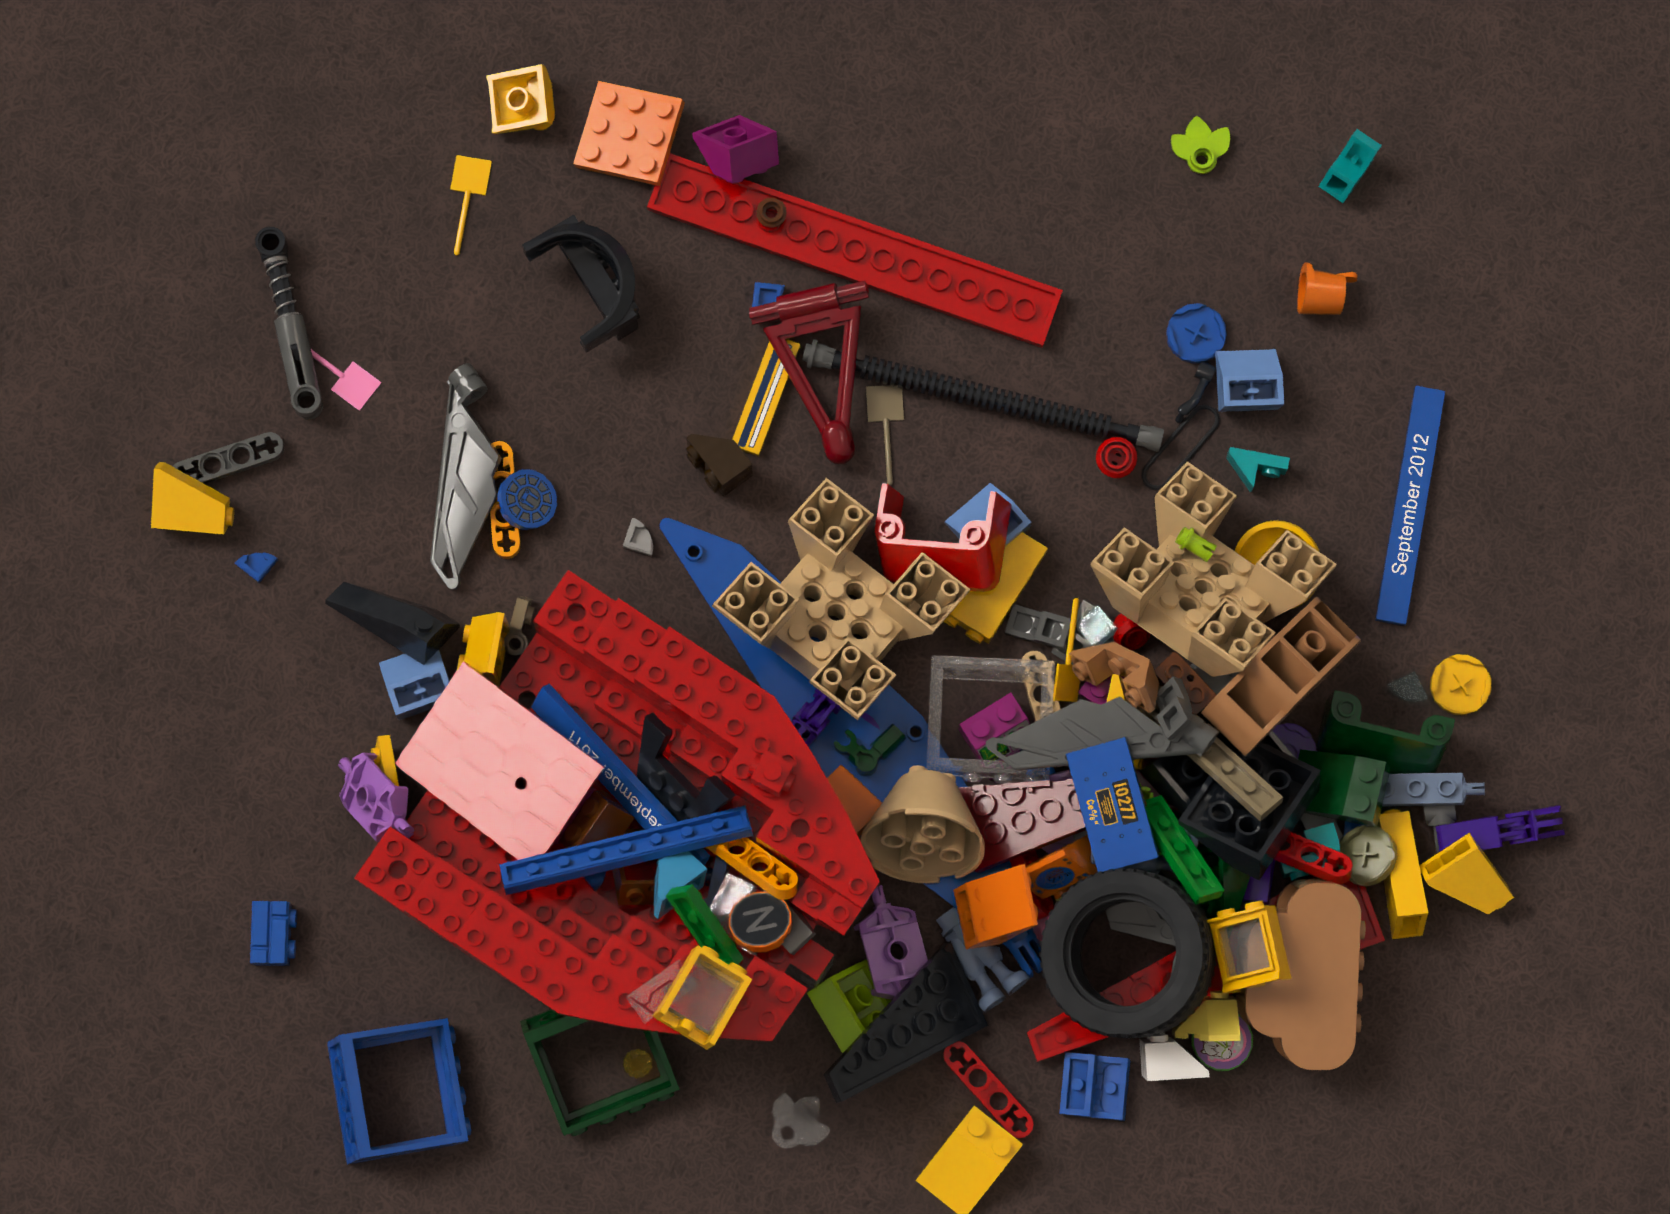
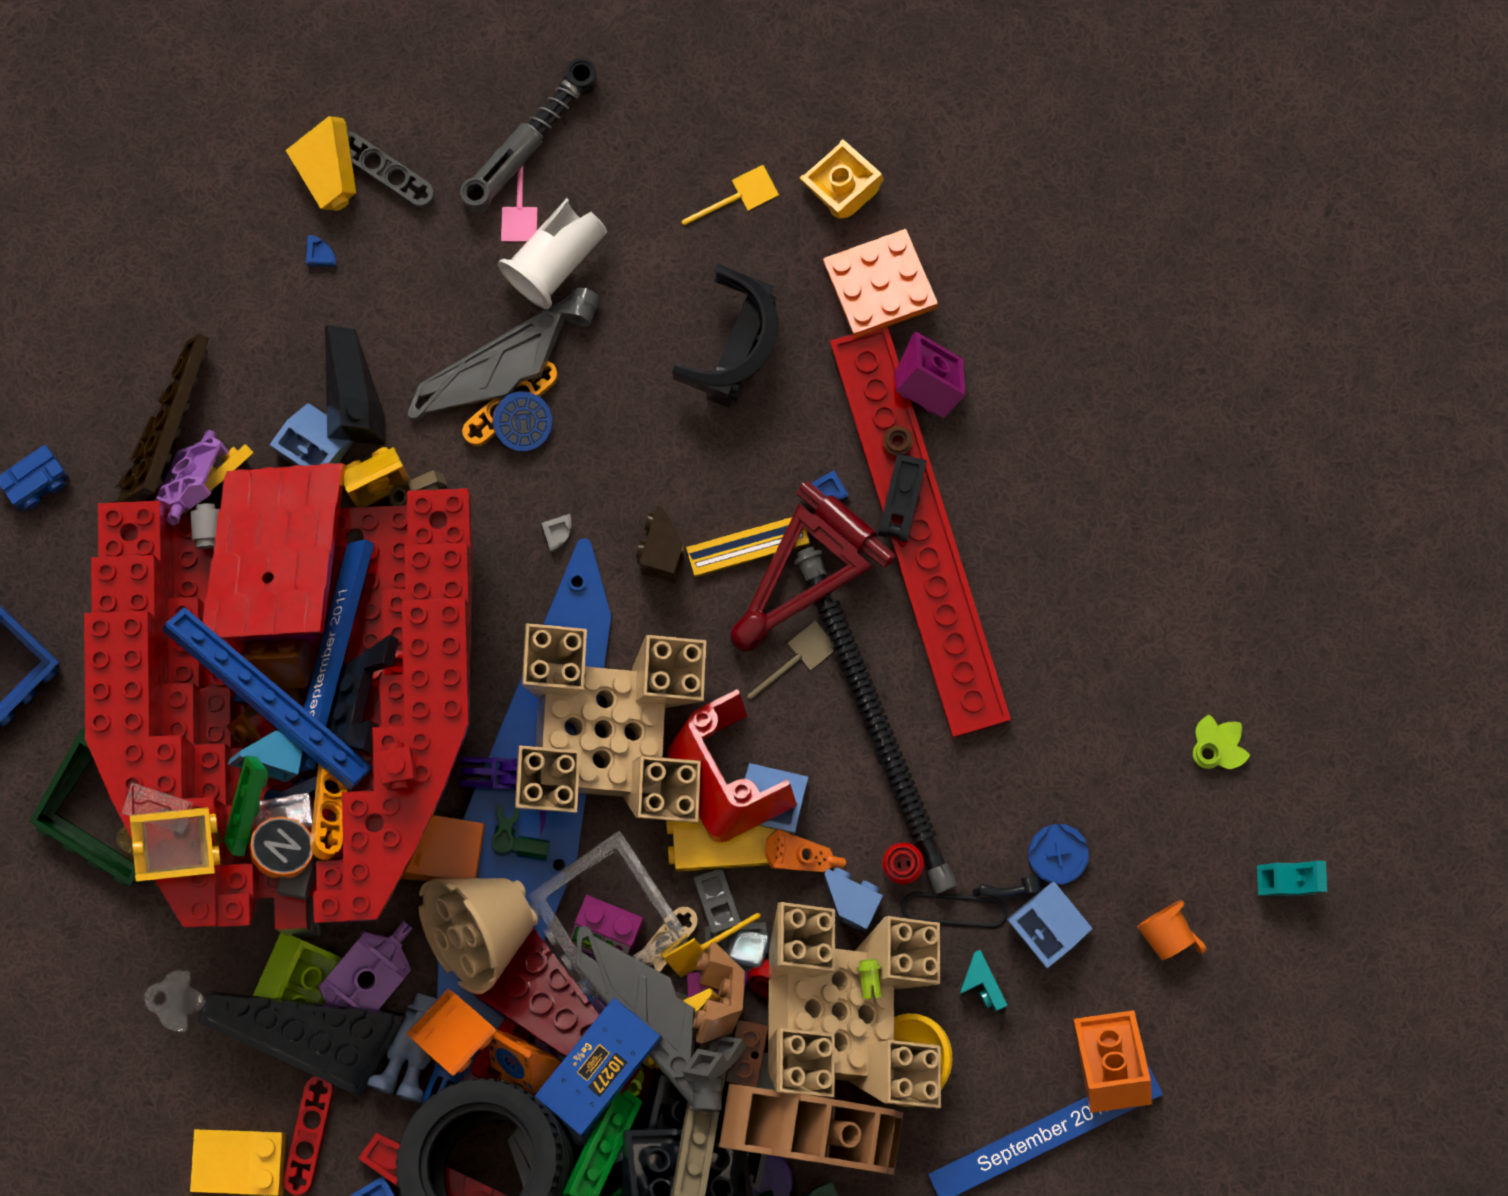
camera: 60 degrees right, 0 degrees up
(317, 802) = (154, 445): none -> dark brown wing
(407, 375) = (552, 254): none -> white piece
(431, 810) = (204, 525): none -> light grey brick
(820, 242) = (902, 496): none -> black plate
(1041, 541) = (791, 853): none -> orange piece
(1123, 510) = (852, 902): none -> medium blue slope
(1393, 409) = (1113, 1061): none -> orange slope

